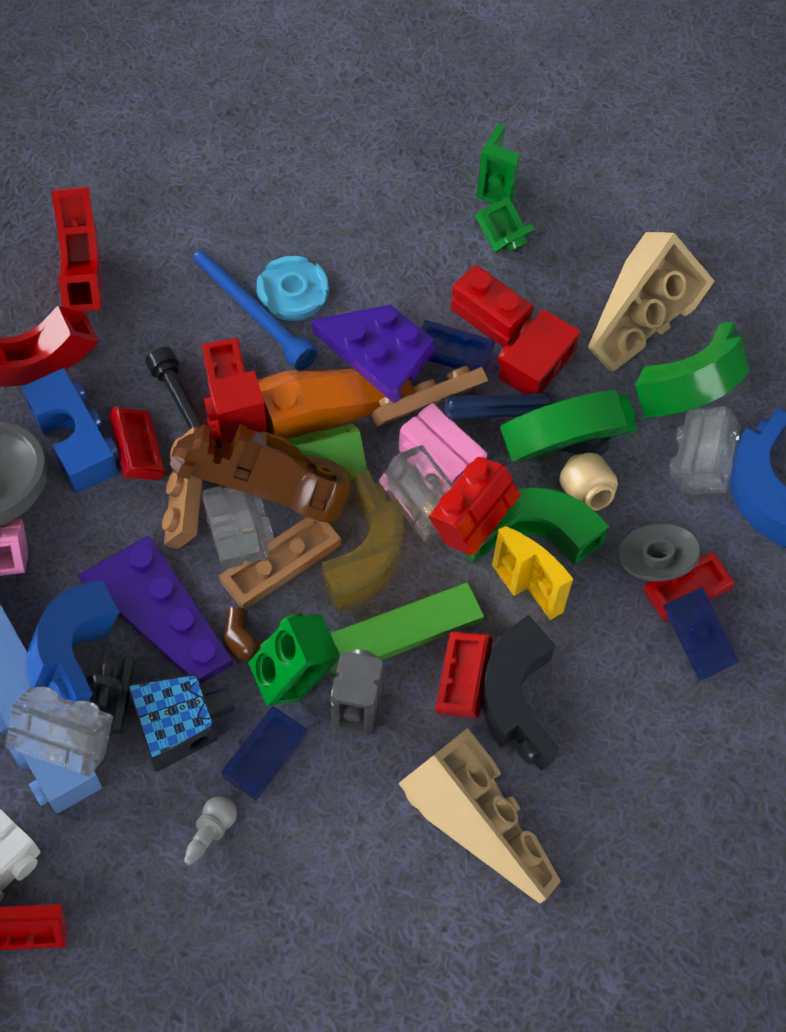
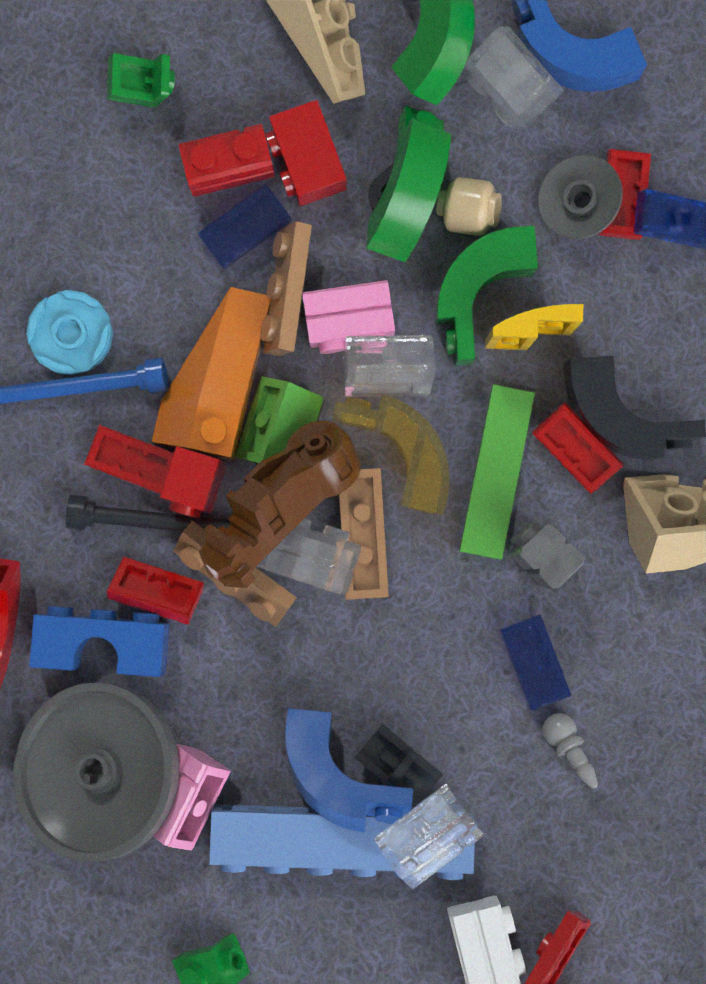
camera: 55 degrees left, 25 degrees up
(160, 608) = (331, 669): dark purple wing -> none
(177, 716) = (457, 717): torso -> none
(236, 637) = (415, 618): reddish brown arm -> none
(294, 659) = (479, 589): green brick -> none
(378, 346) = (201, 298): dark purple wing -> none
(474, 505) = (447, 335): red brick -> none
(493, 405) = (340, 234): dark blue axle -> none
(497, 169) = (80, 42): green panel -> none

